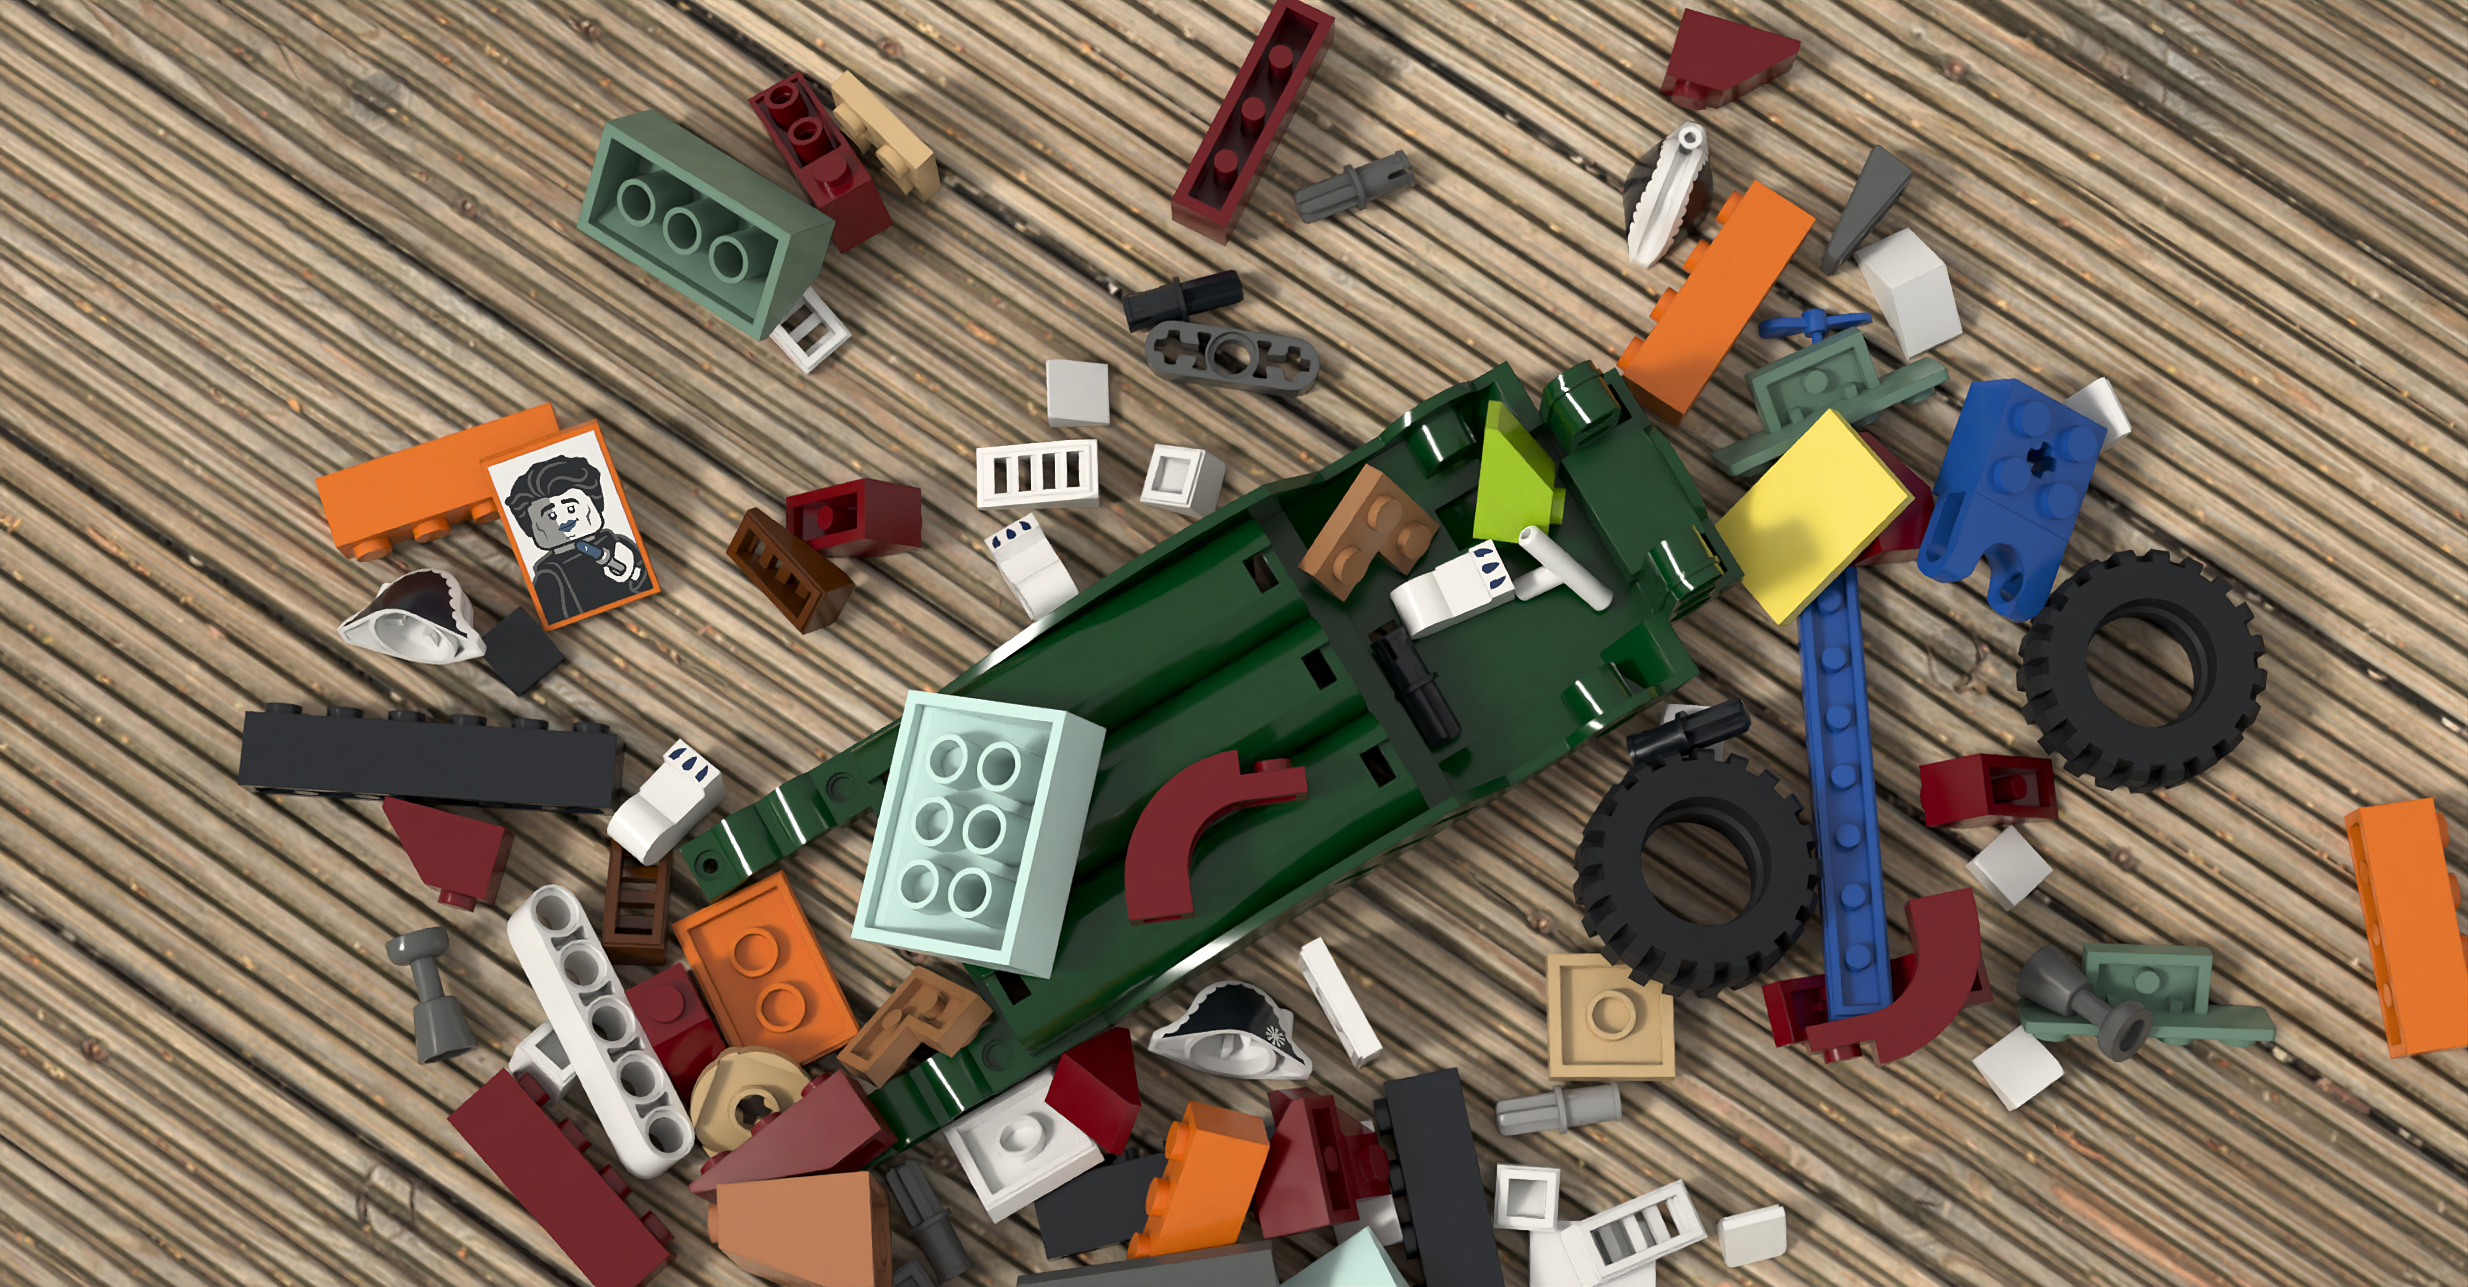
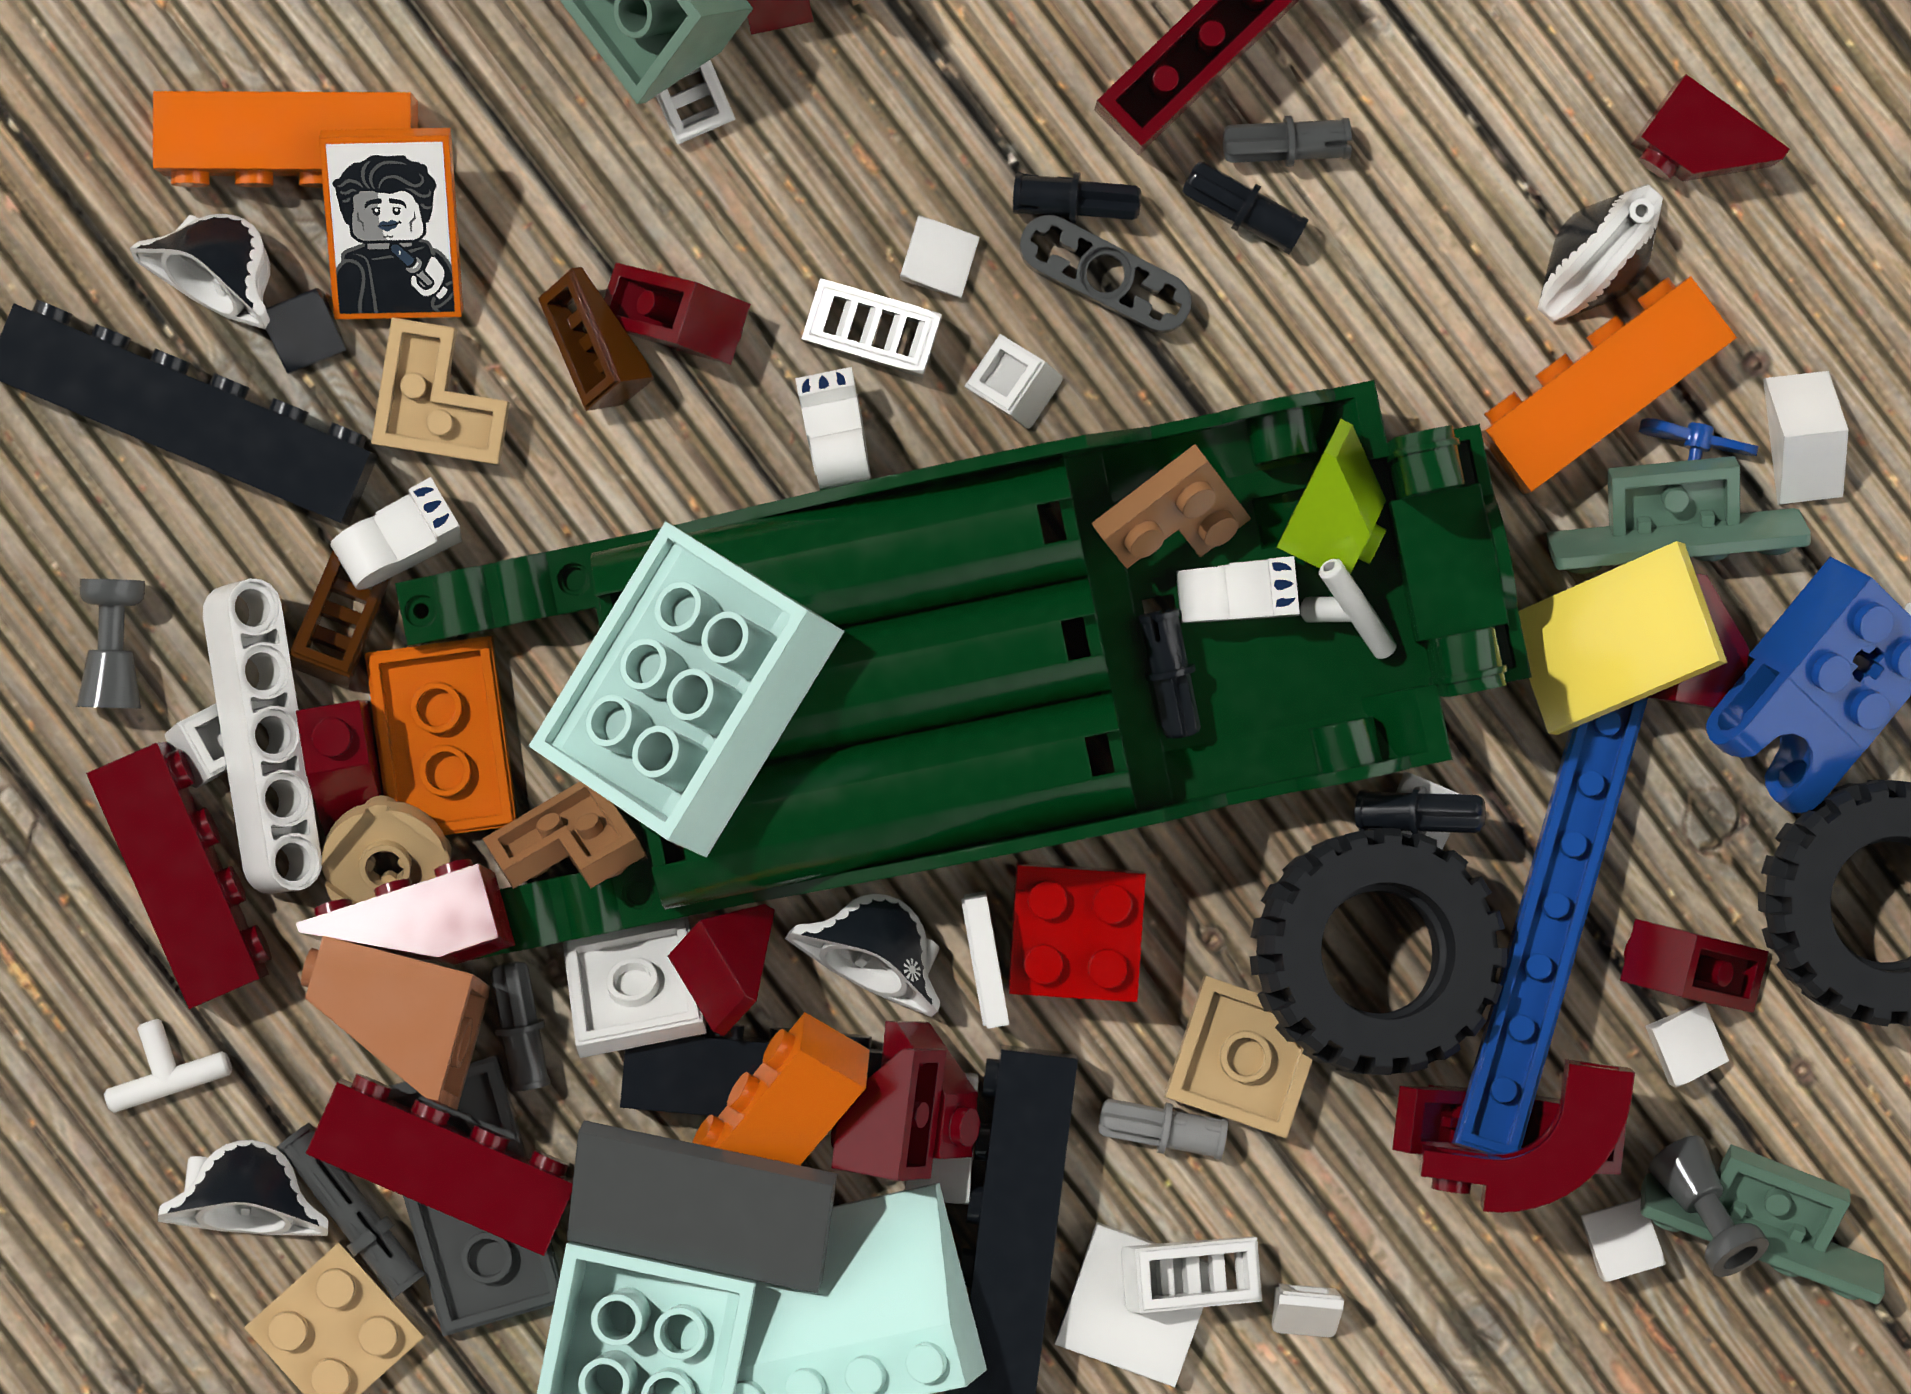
camera: 20 degrees right, 10 degrees up
(452, 852) = (172, 509): dark red slope -> none
(649, 687) = (419, 411): none -> tan plate
(1177, 816) = (856, 769): dark red arch -> none
(1335, 257) = (1244, 206): none -> black axle
(1414, 953) = (1076, 932): none -> red brick
(1526, 1197) = (1102, 1200): white slope -> none
(1874, 194) = (1803, 328): dark grey slope -> none

